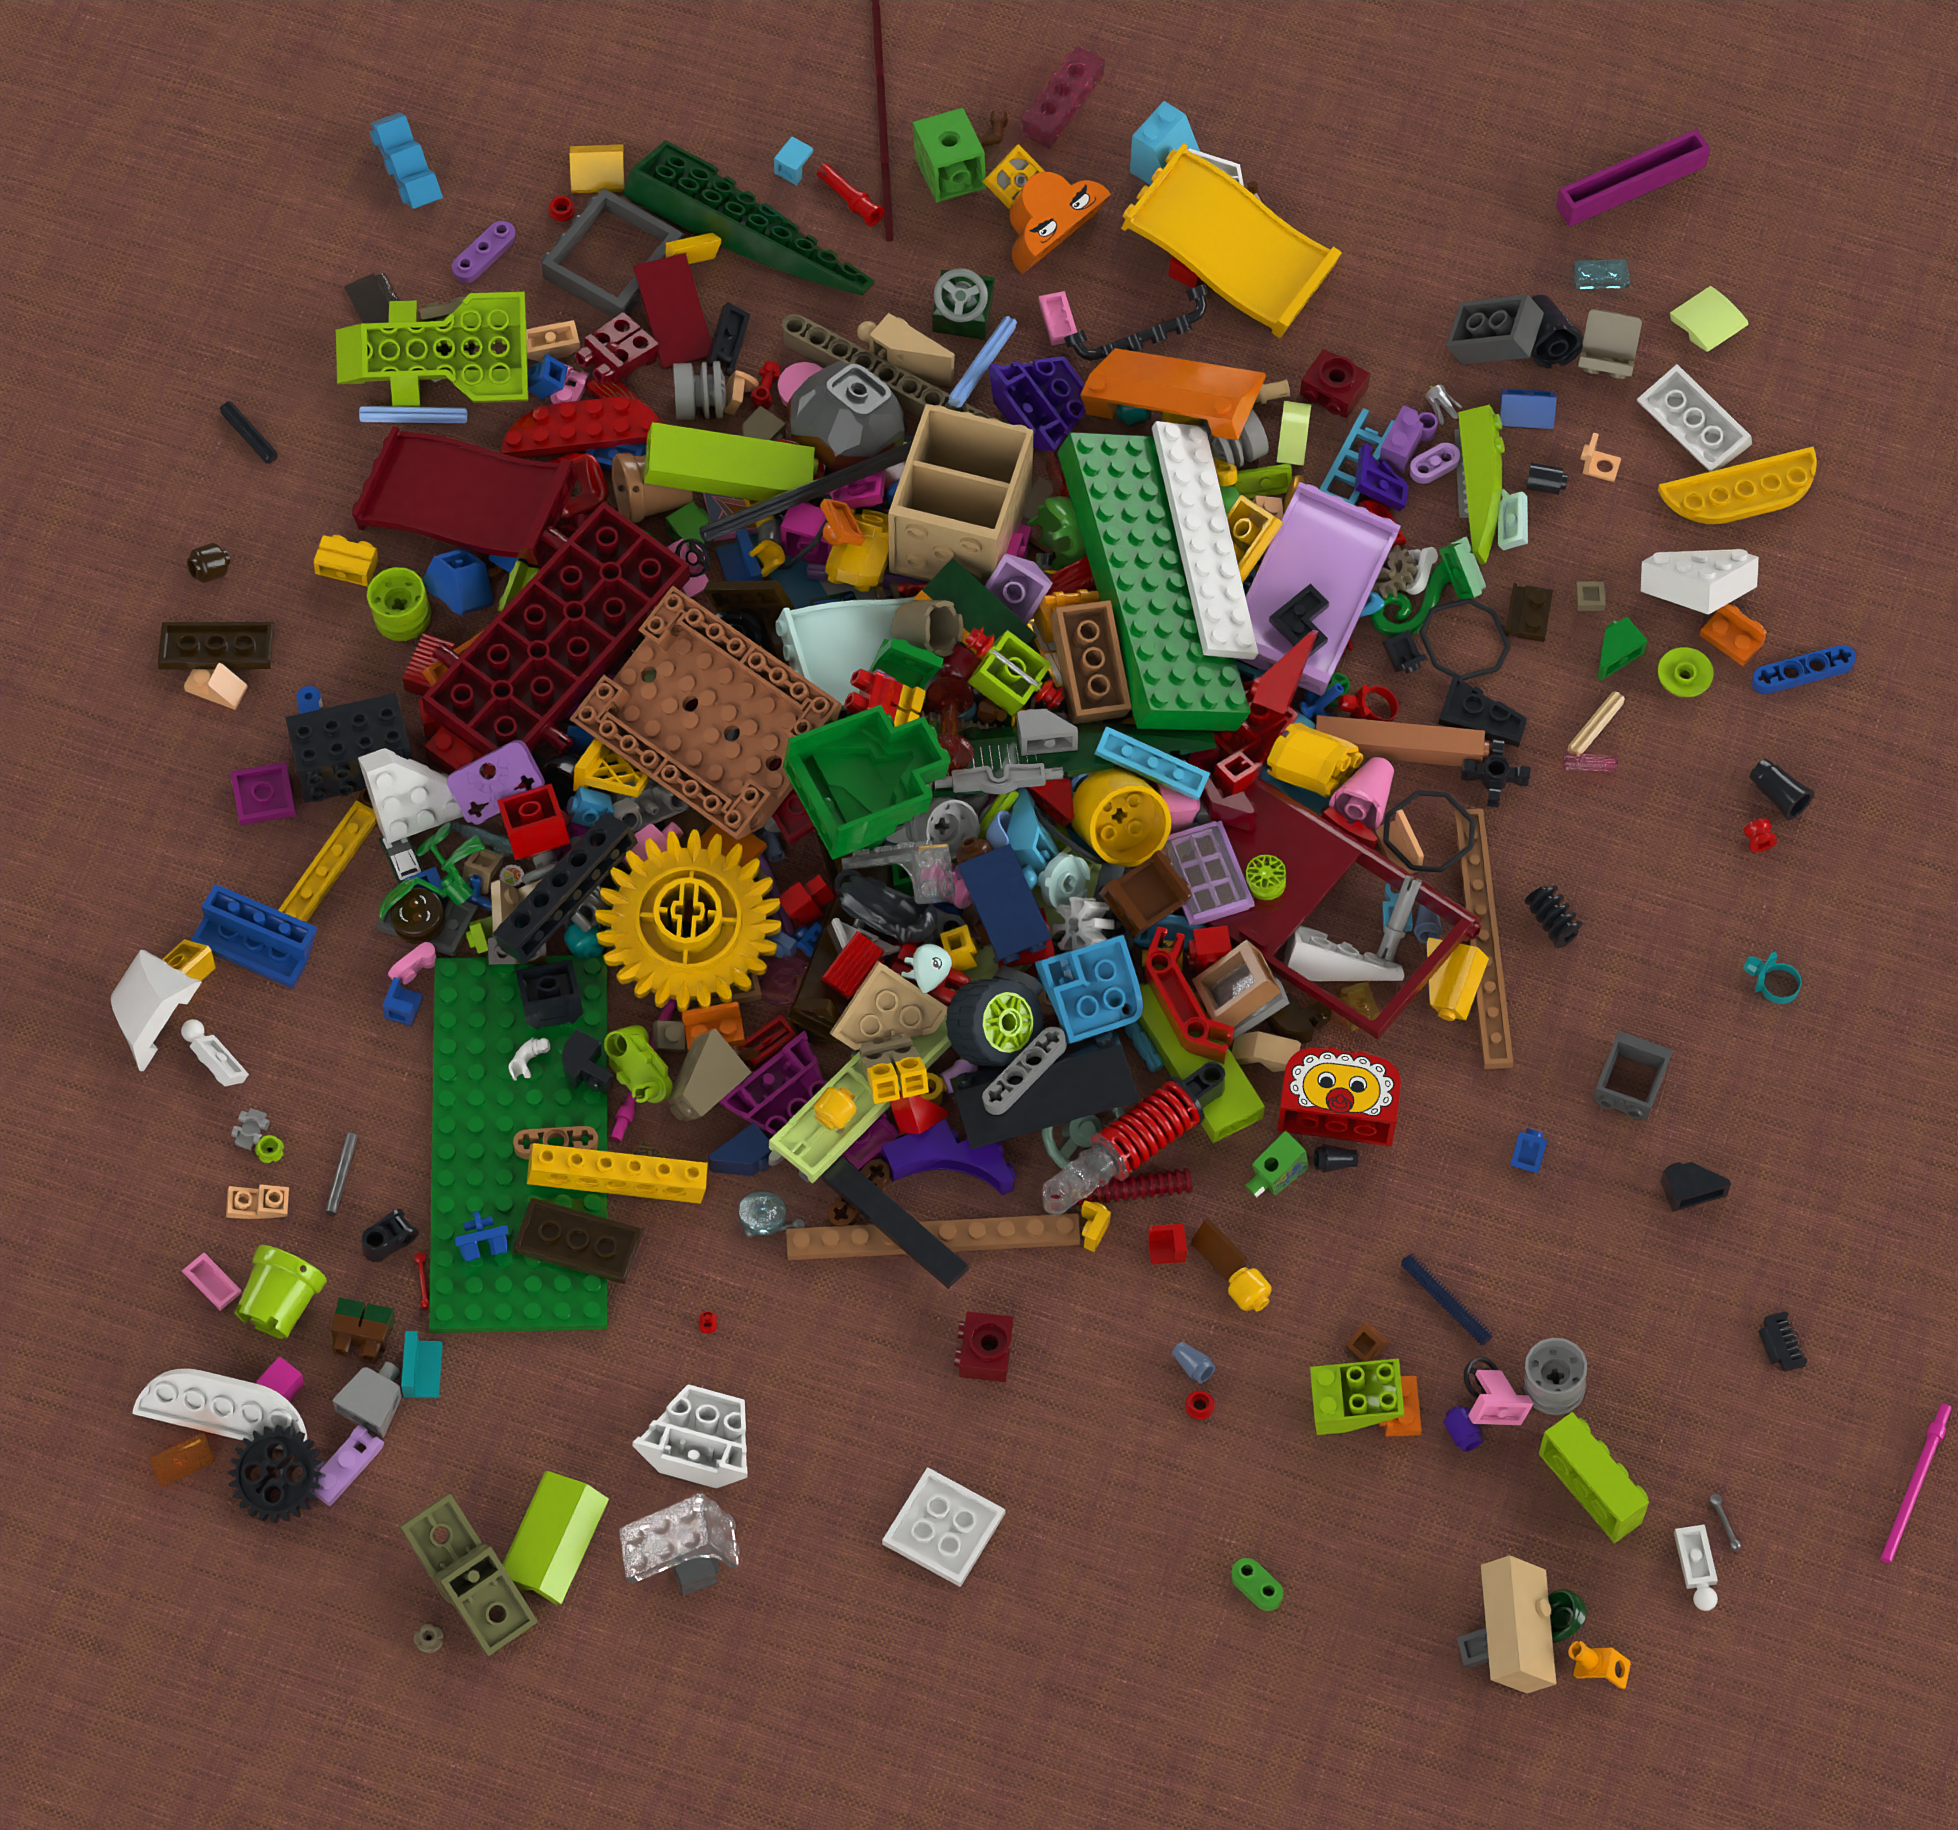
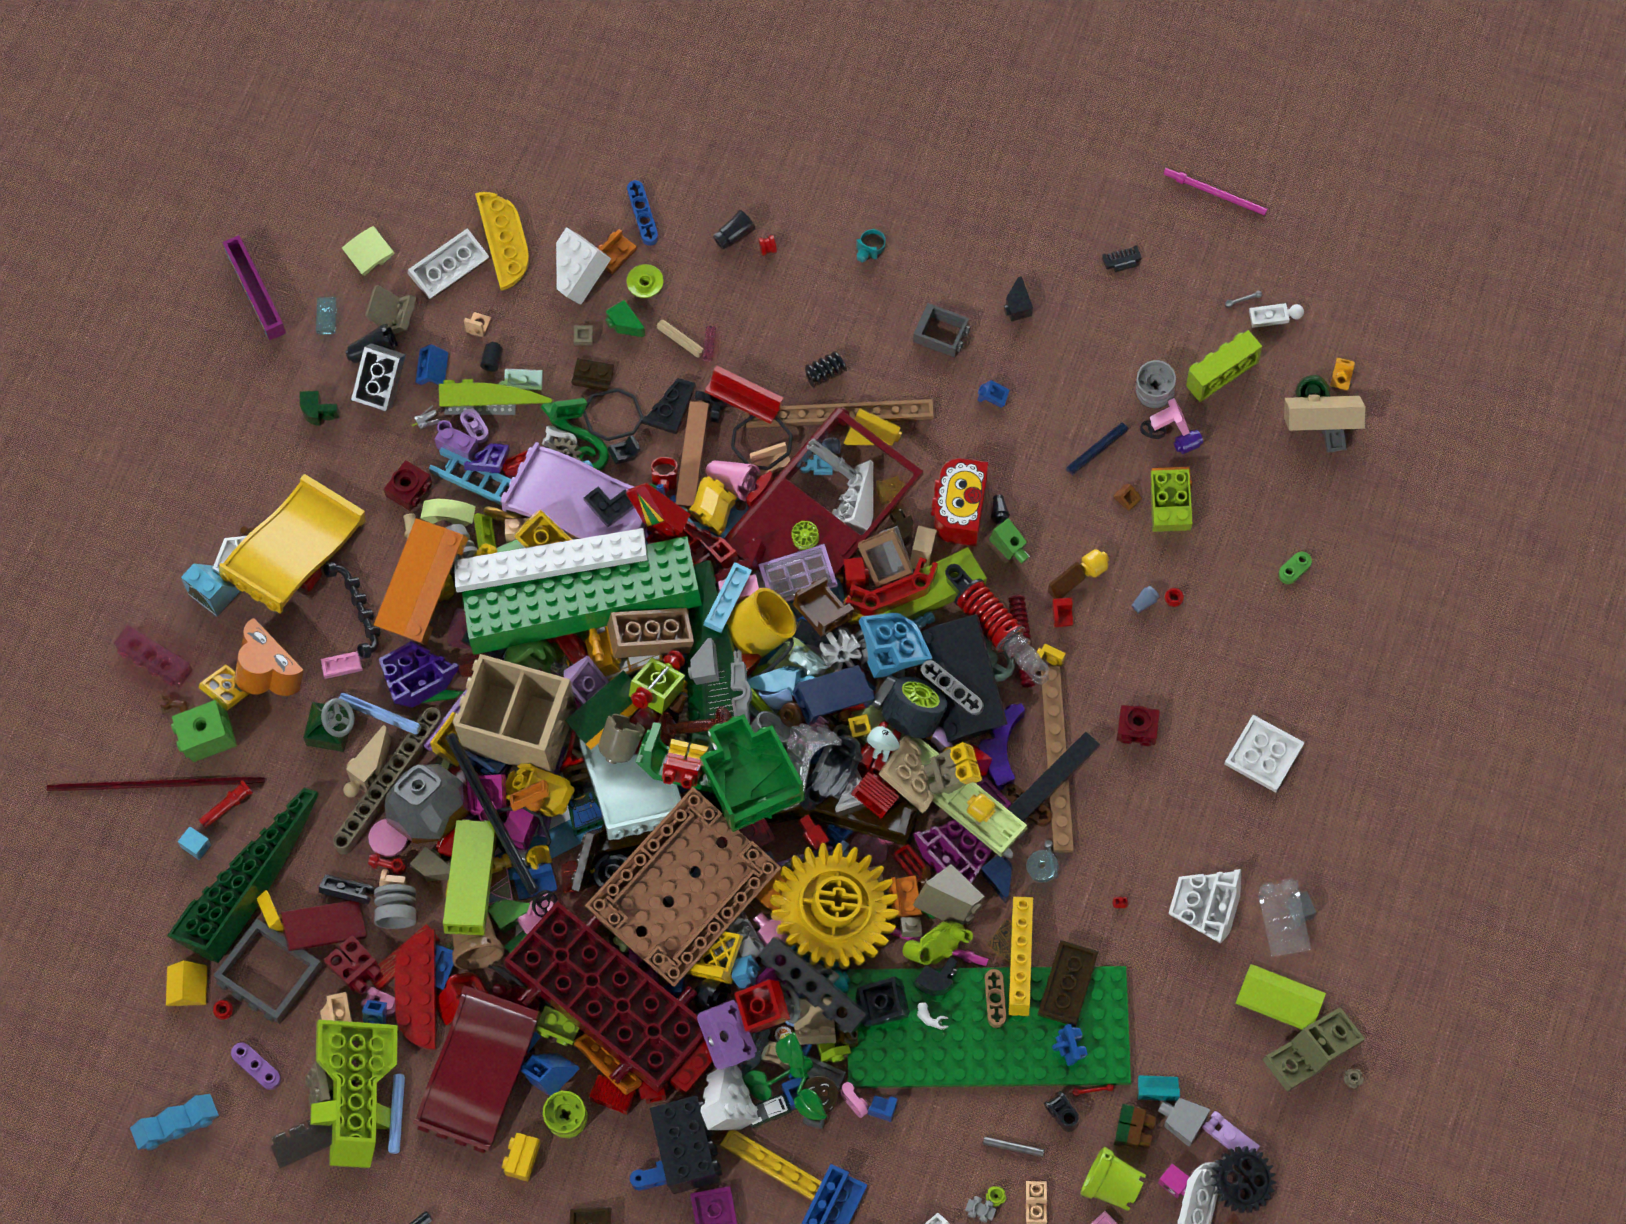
camera: 85 degrees left, 5 degrees up
(1449, 261) = (315, 411): none -> dark green brick
(1494, 798) = (744, 395): none -> red panel

